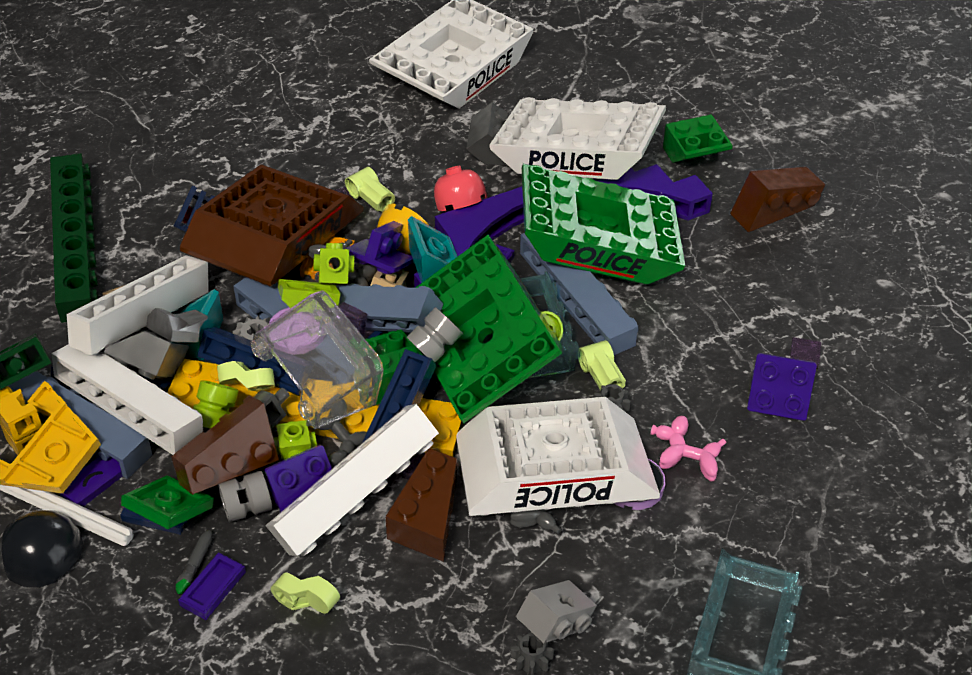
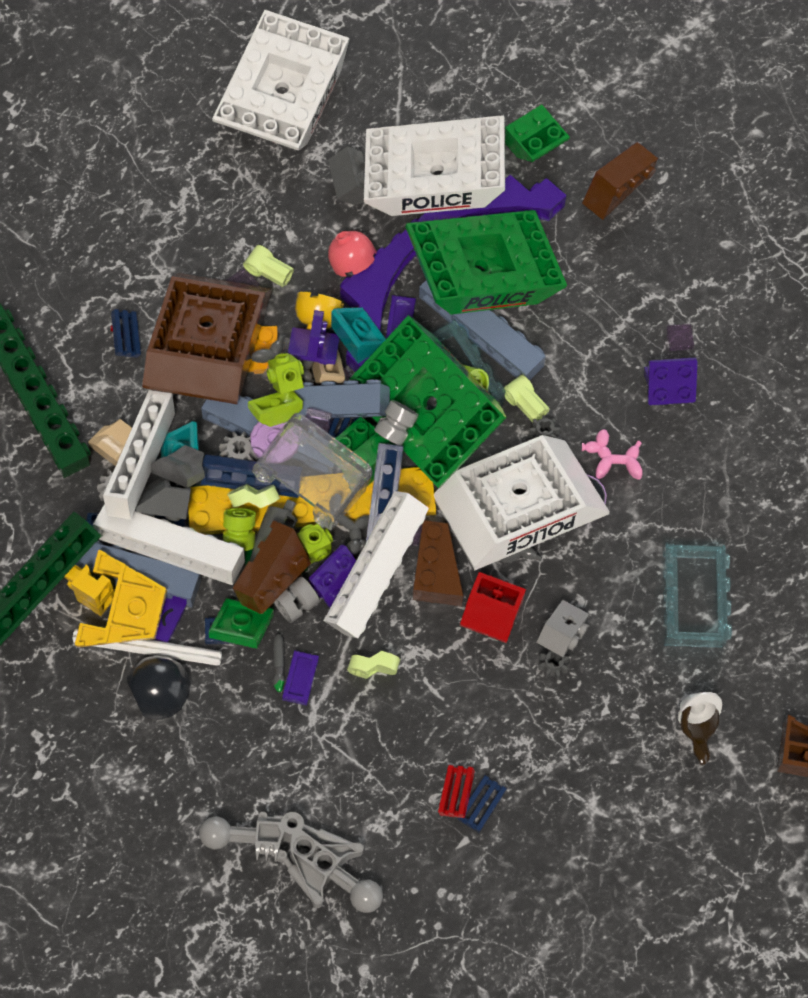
camera: 20 degrees left, 20 degrees up
(478, 566) = (492, 607): none -> red slope

